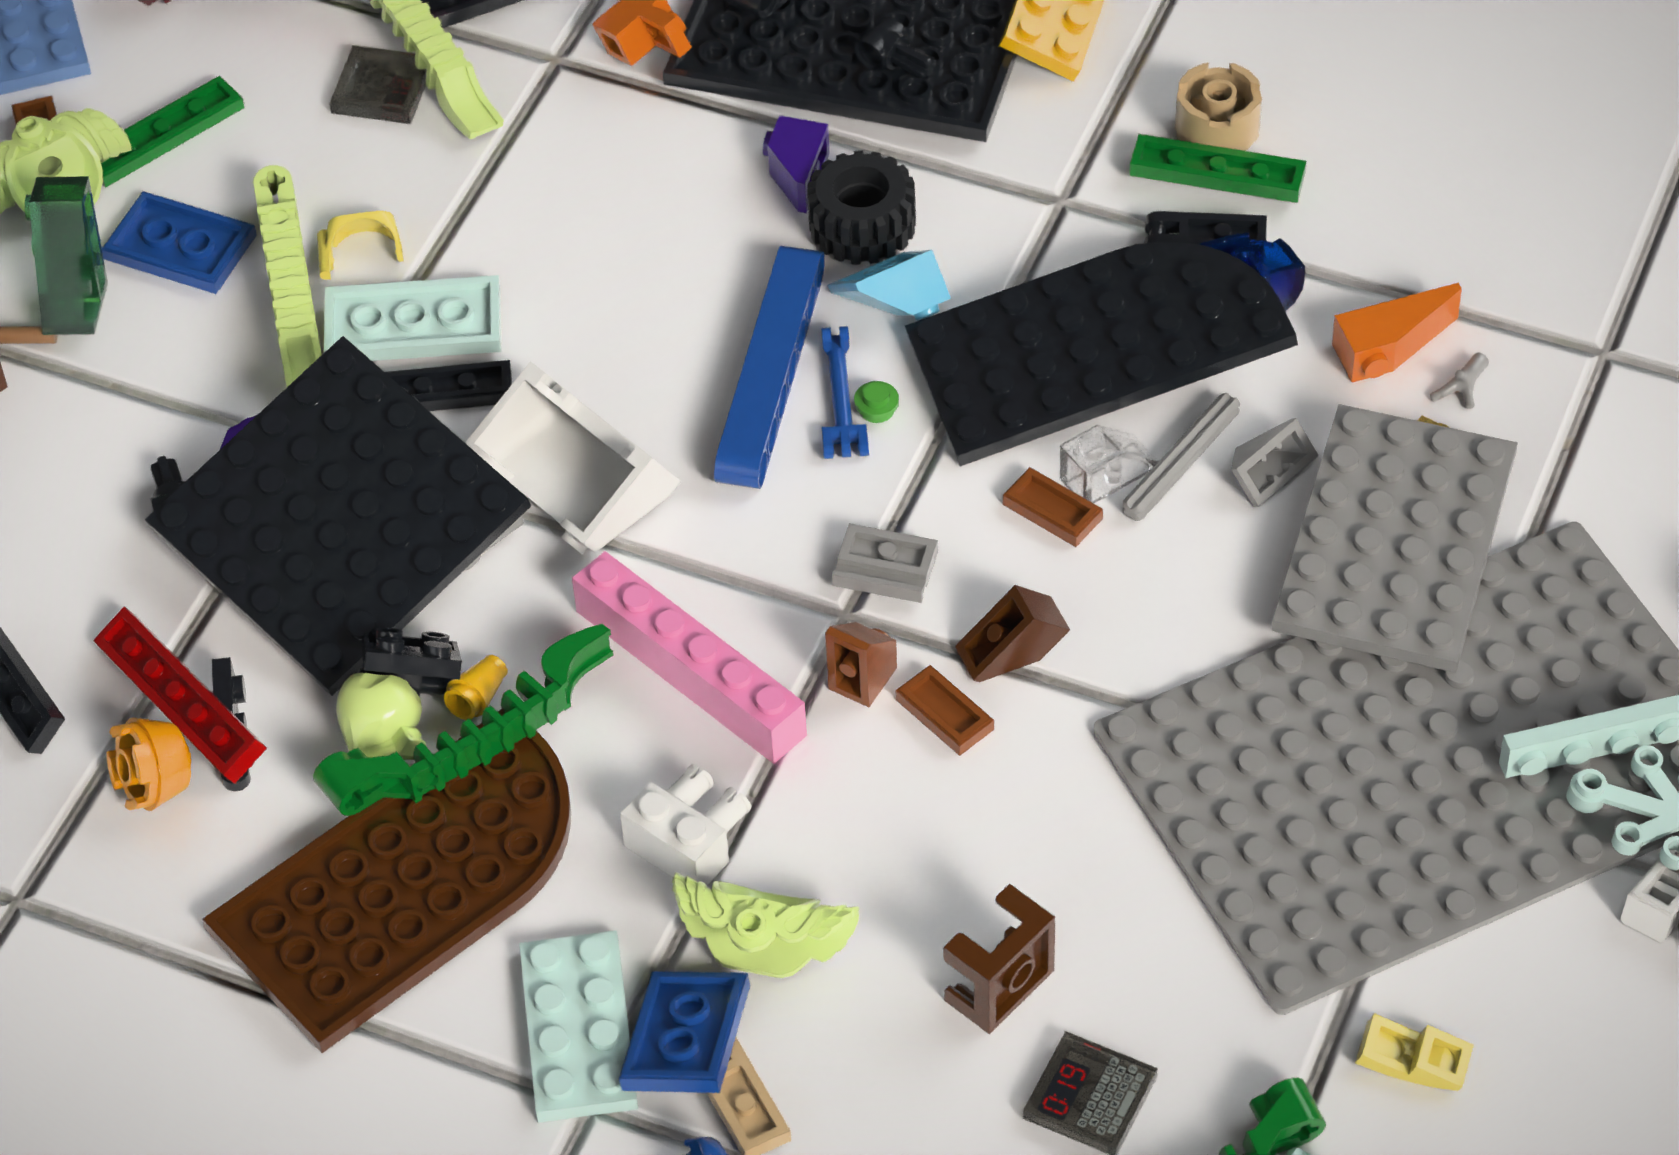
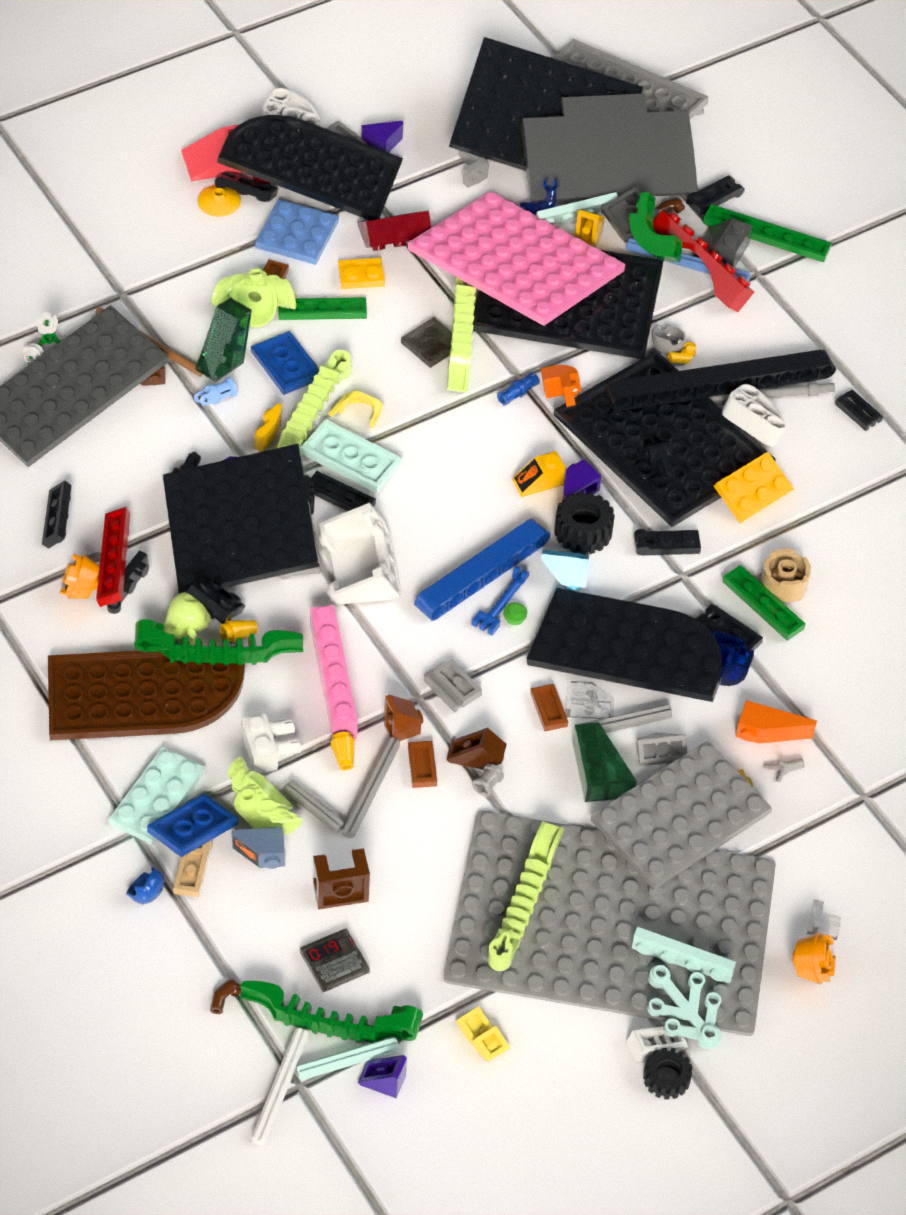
camera: 30 degrees right, 0 degrees up
(110, 350) = (215, 393): none -> light blue piece
(177, 46) = (361, 273): none -> yellow plate
(243, 349) = (271, 424): none -> yellow slope
(577, 76) = (518, 388): none -> blue pin
(729, 177) = (540, 474): none -> yellow slope
(810, 764) = (343, 749): none -> yellow cone
(821, 993) = (261, 846): none -> sand blue slope
(841, 879) = (314, 806): none -> light grey axle
(902, 795) = (370, 788): none -> light grey axle
(1000, 166) = (667, 542): none -> black plate
(1068, 669) = (488, 779): none -> light grey bush
(1211, 540) = (599, 764): none -> clear green wedge
(1297, 818) = (525, 896): none -> yellowish green piece

